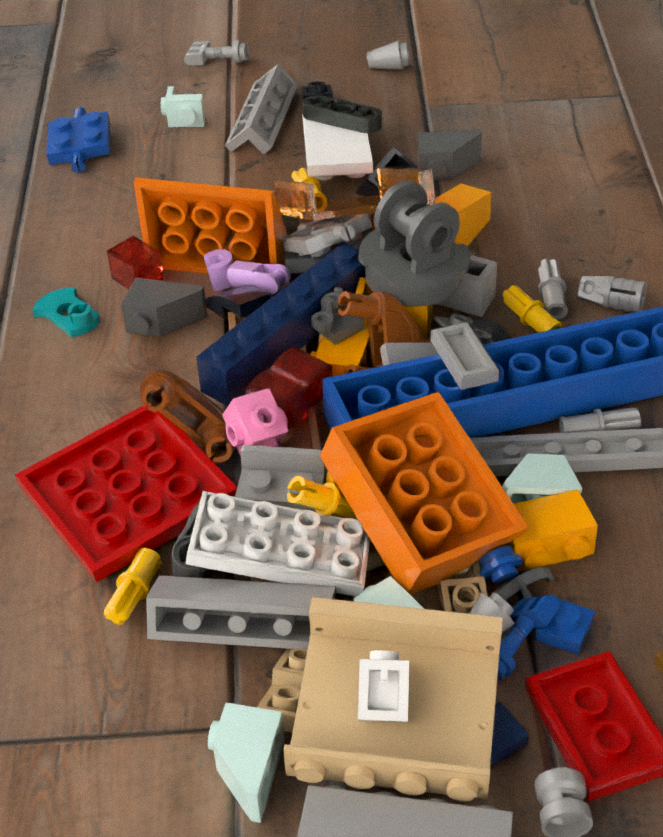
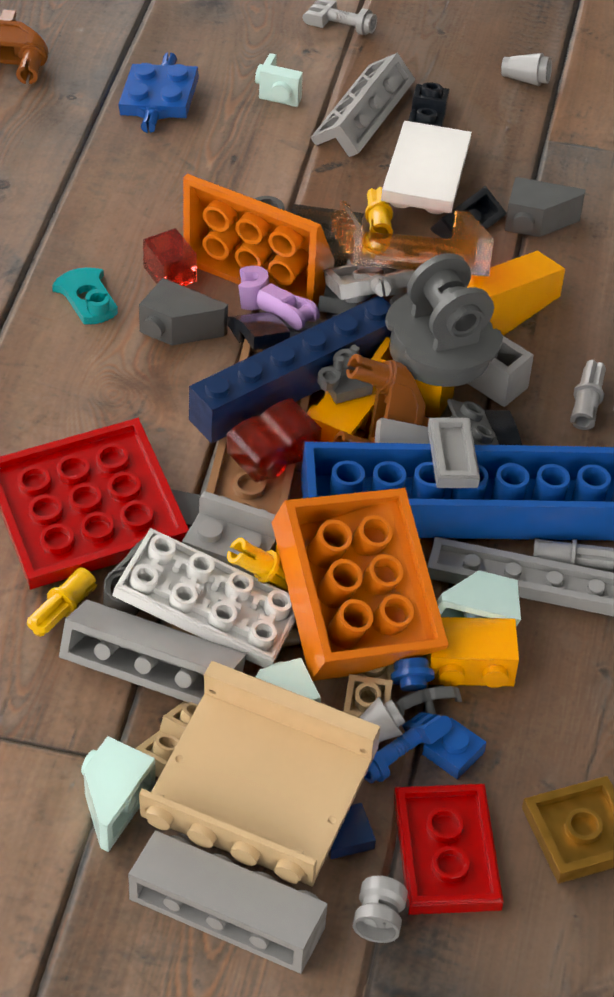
camera: 10 degrees right, 5 degrees up
(188, 410) = (171, 441): dark orange connector -> none
(255, 420) = (225, 469): bright pink brick -> none
(342, 114) = (444, 133): pearl dark grey beam -> none
(383, 687) = (249, 761): white bracket -> none
(530, 311) = (556, 416): yellow axle -> none

